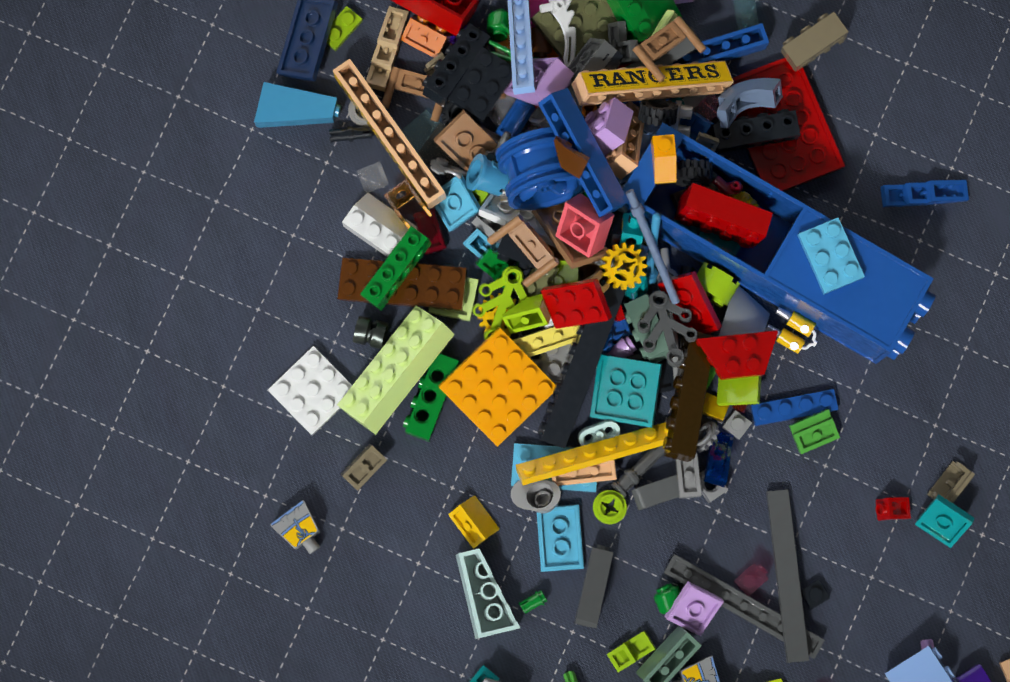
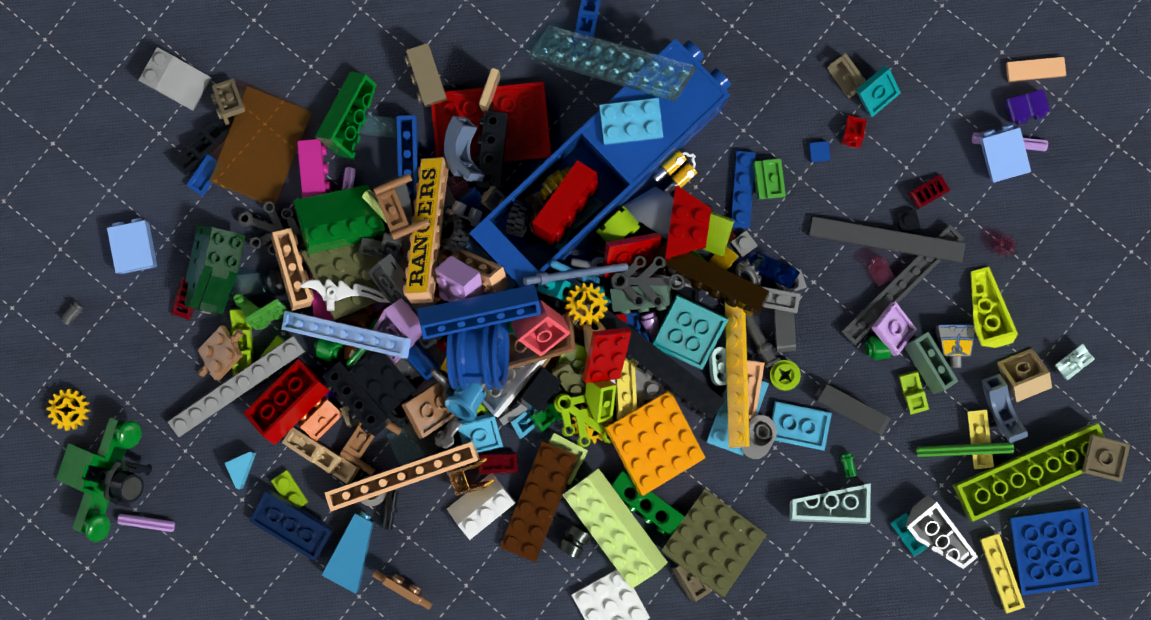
camera: 70 degrees left, 5 degrees up
(273, 164) = (396, 584): none -> medium nougat plate
(372, 177) = (435, 500): clear panel -> none
(396, 268) = (526, 504): green brick -> none
(409, 479) = (713, 543): none -> olive plate
(473, 521) = (765, 496): yellow panel -> none
(530, 244) = (541, 380): medium nougat plate -> none
(569, 158) = (484, 325): reddish brown slope -> none
(664, 158) = (504, 242): light orange slope -> none
(729, 188) = (541, 192): dark red arm -> none
(819, 109) = (489, 90): none -> tan tile
(836, 602) = (915, 198): none -> dark red slope
(860, 478) = (819, 151): none -> blue tile
(887, 223) = (613, 62): none -> clear light blue plate

